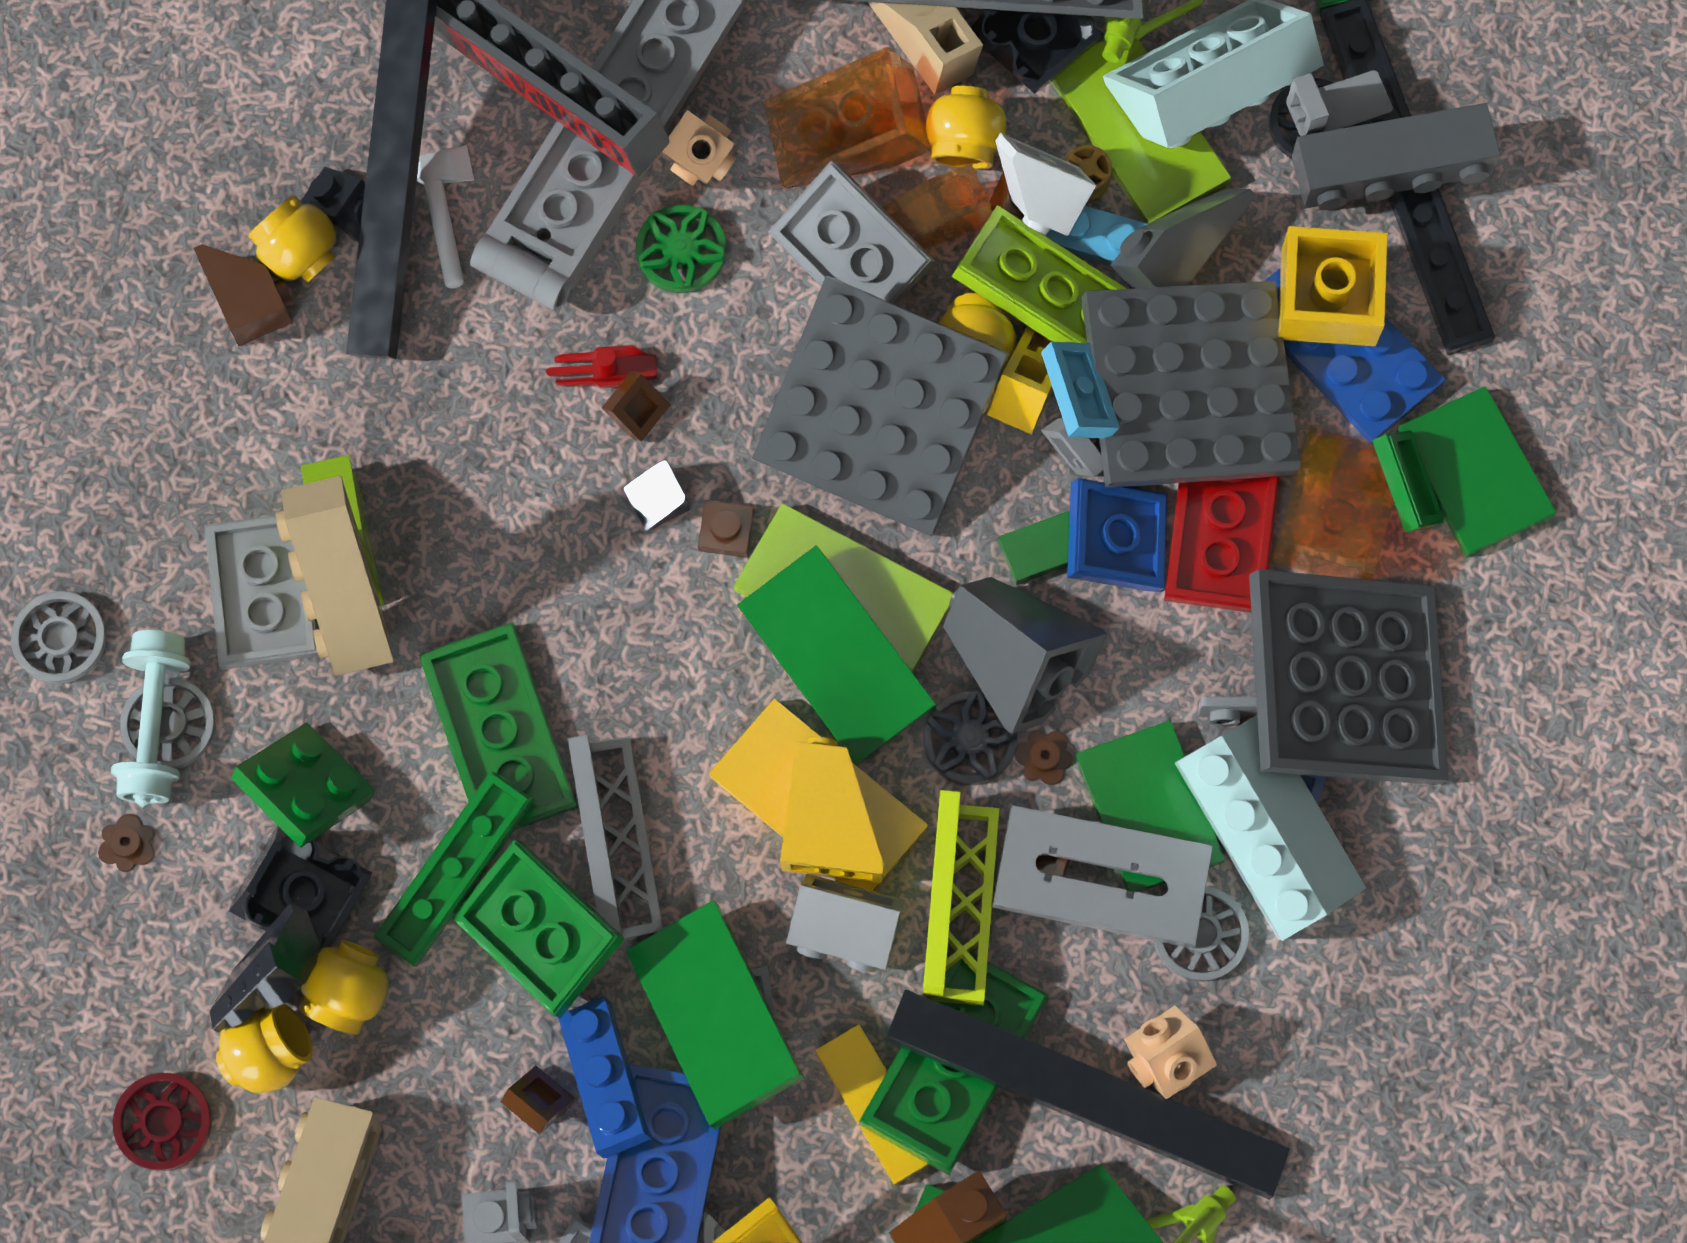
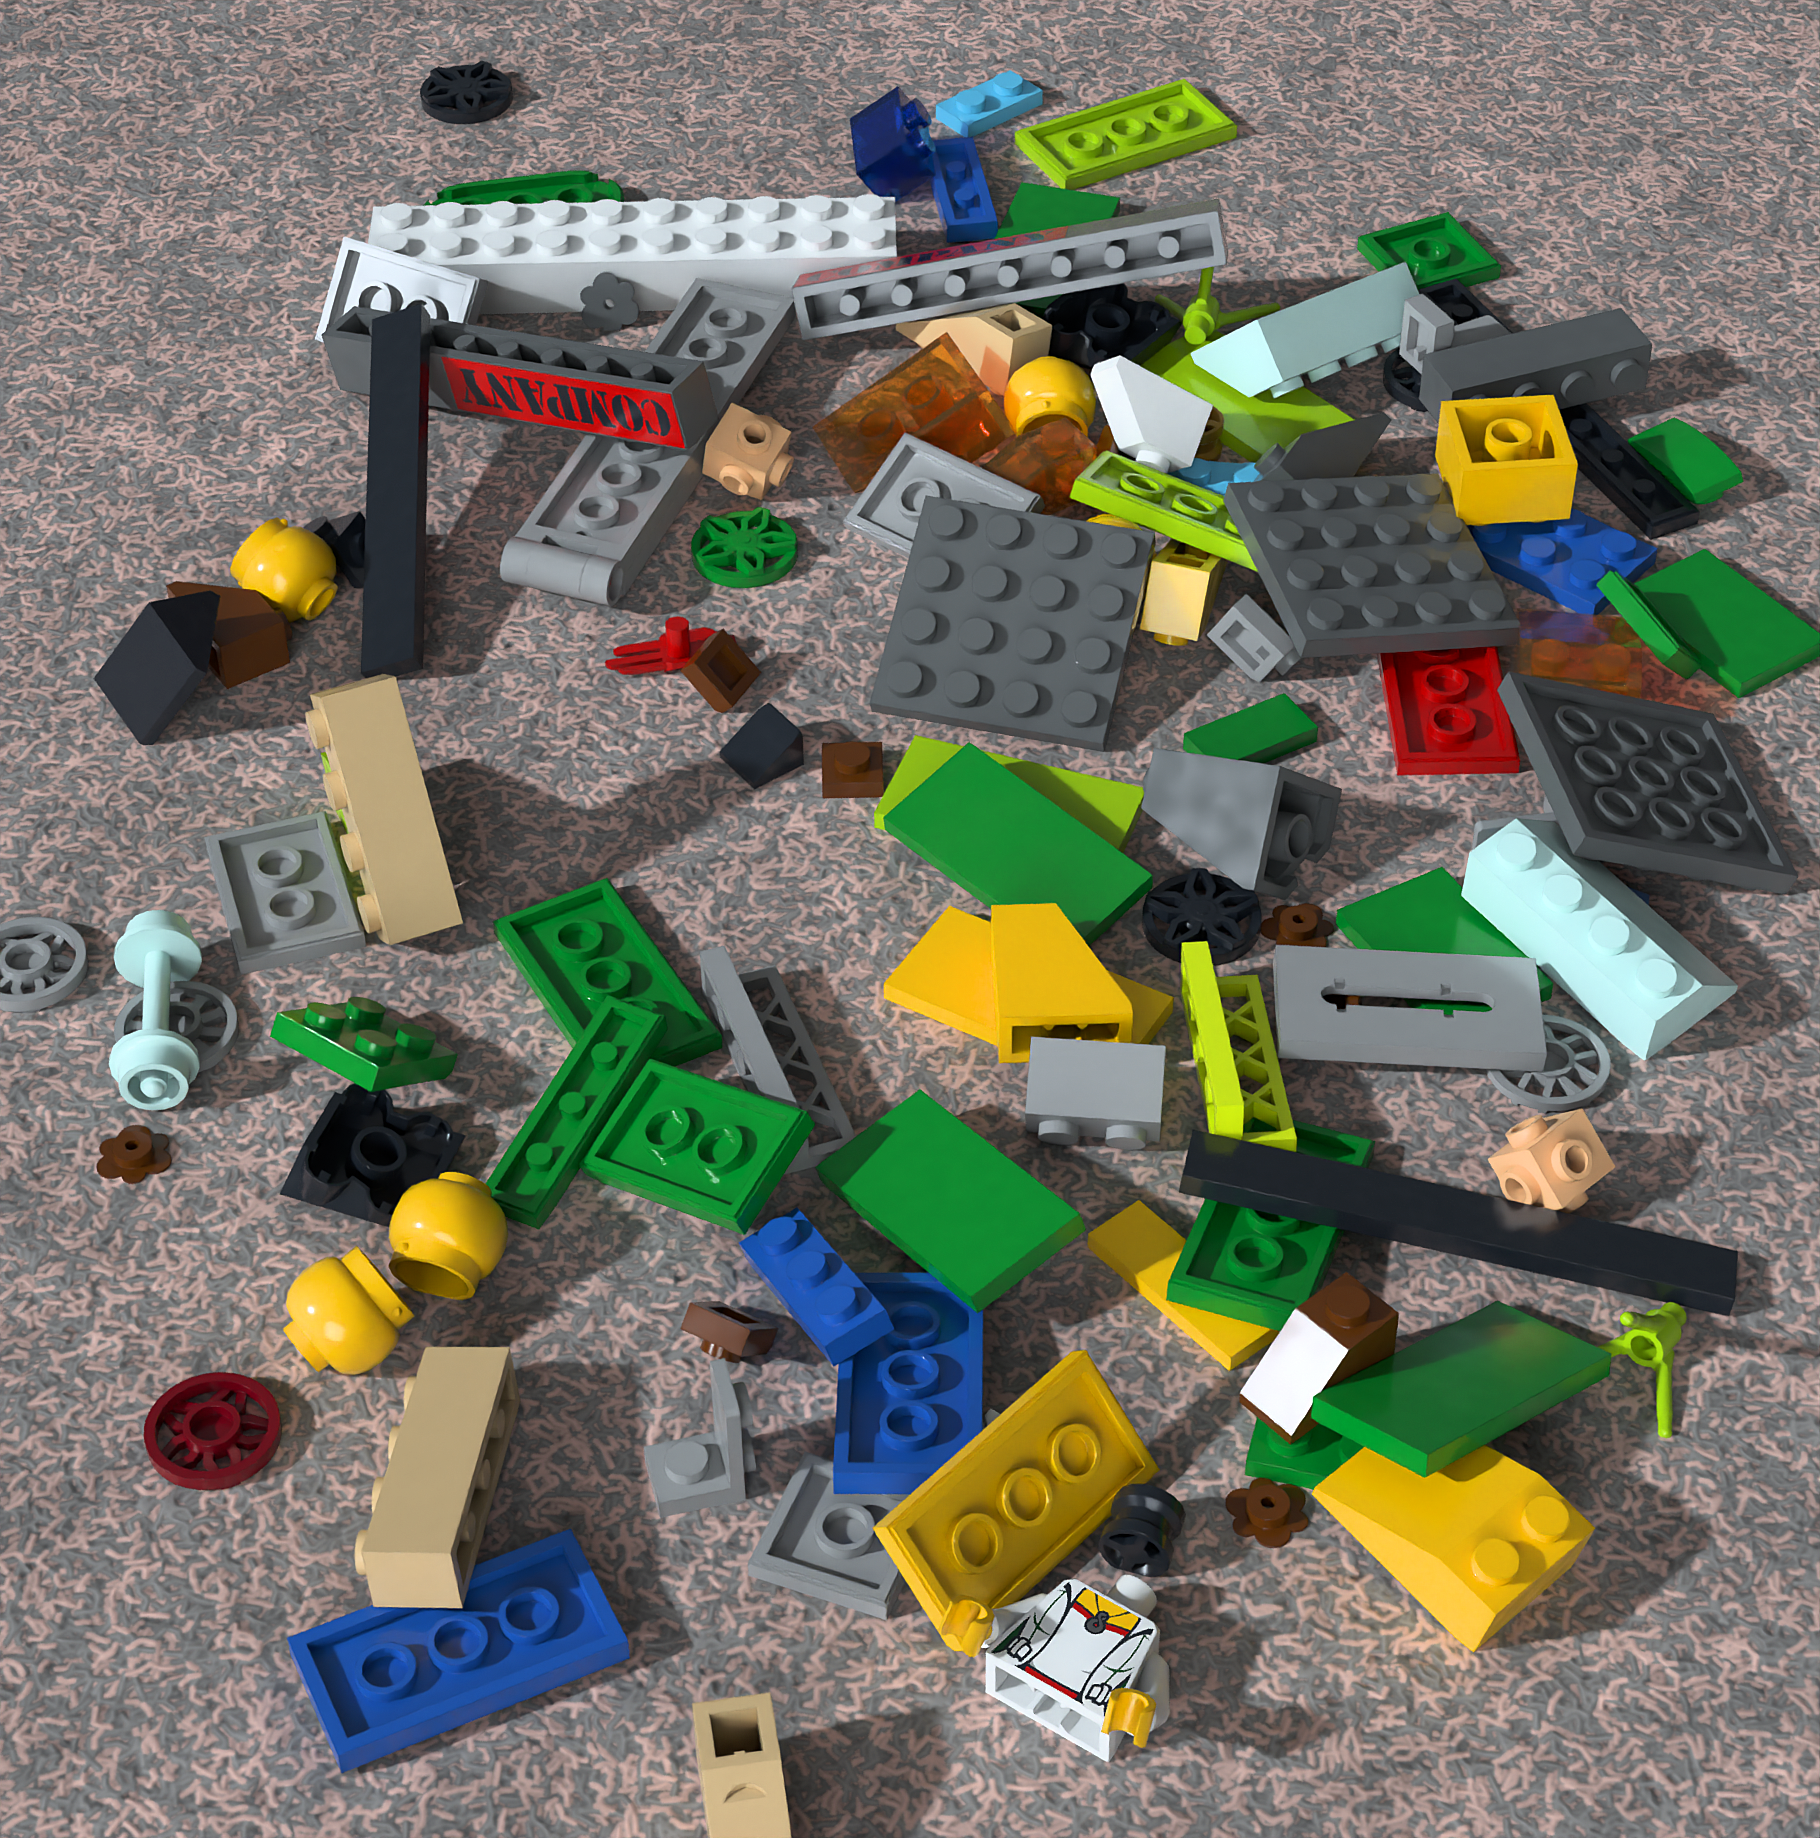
camera: 10 degrees left, 30 degrees down
(185, 348) = (160, 662): none -> black slope
(269, 971) = (350, 1196): black slope -> none
(433, 171) = (444, 521): white piece -> none
(1079, 390) = (1241, 558): medium azure plate -> none
(1117, 535) = (1325, 712): blue tile -> none
(1499, 275) = (1688, 460): none -> green slope

